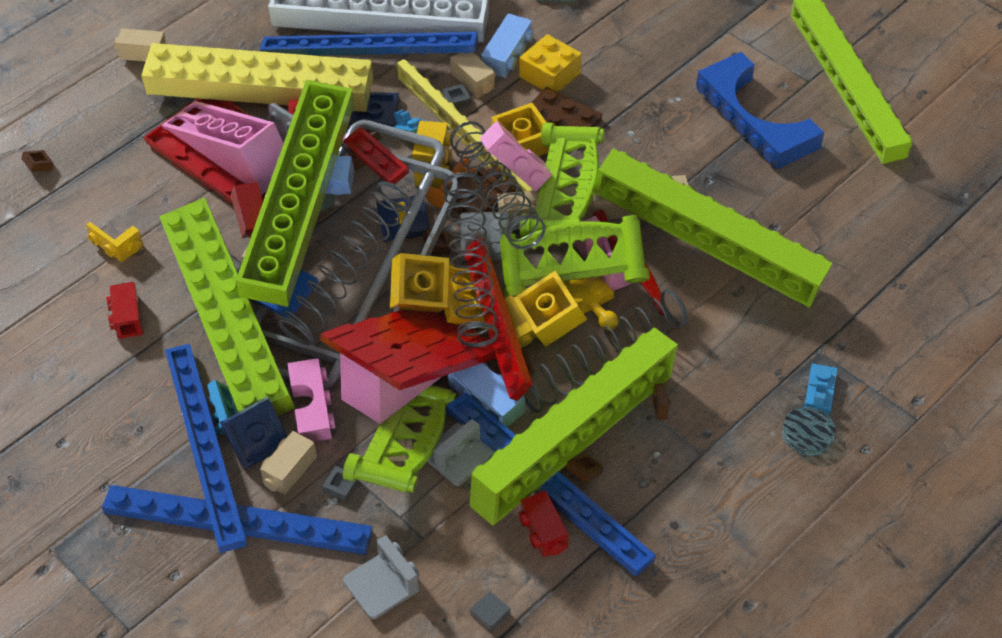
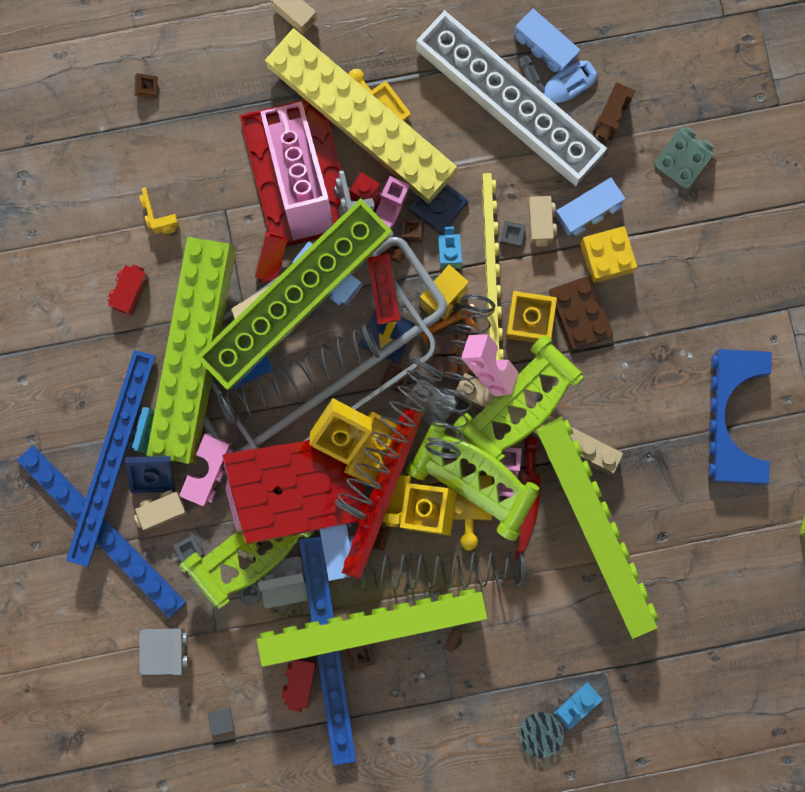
camera: 30 degrees right, 30 degrees up
(372, 44) = (475, 135): blue plate -> none
(432, 483) = (250, 594): none -> dark grey tile

